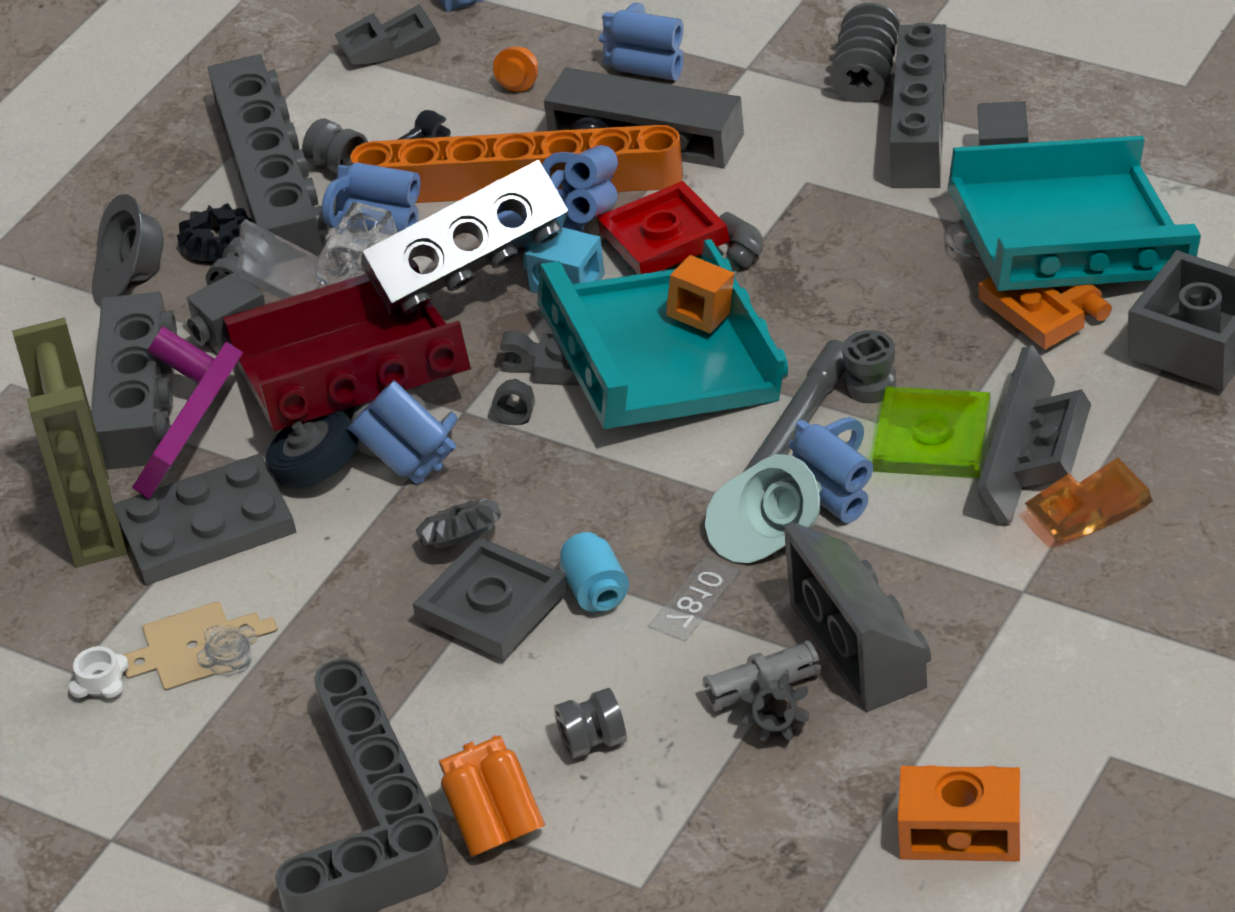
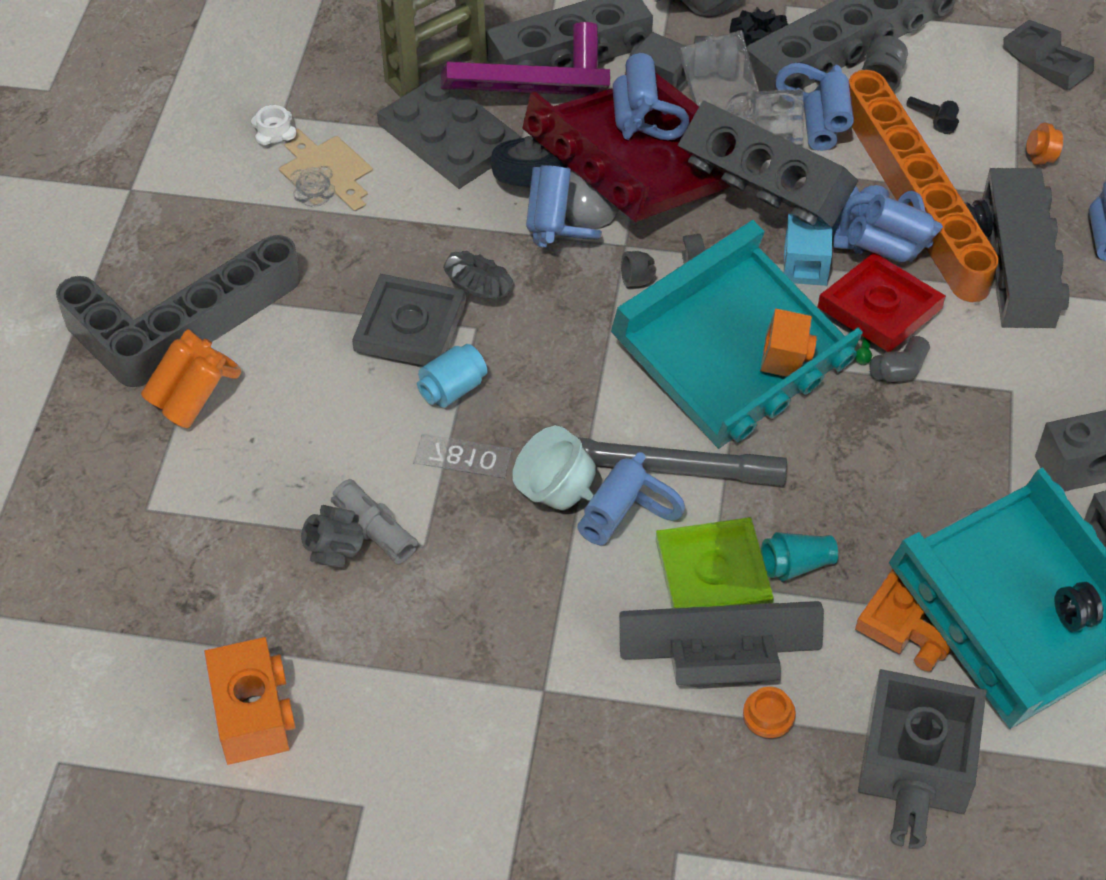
camera: 65 degrees right, 10 degrees up
(293, 324) = (636, 95): none -> medium blue piece
(590, 723) = (292, 426): dark grey wheel -> none
(854, 618) = (438, 558): dark grey slope -> none
(868, 365) = (765, 495): dark grey wheel -> none
(947, 362) = (795, 554): none -> teal cone
(1081, 508) = (660, 714): clear orange slope -> none
(1097, 169) = (1079, 606): none -> black bush
(1118, 425) = (769, 712): none -> orange plate

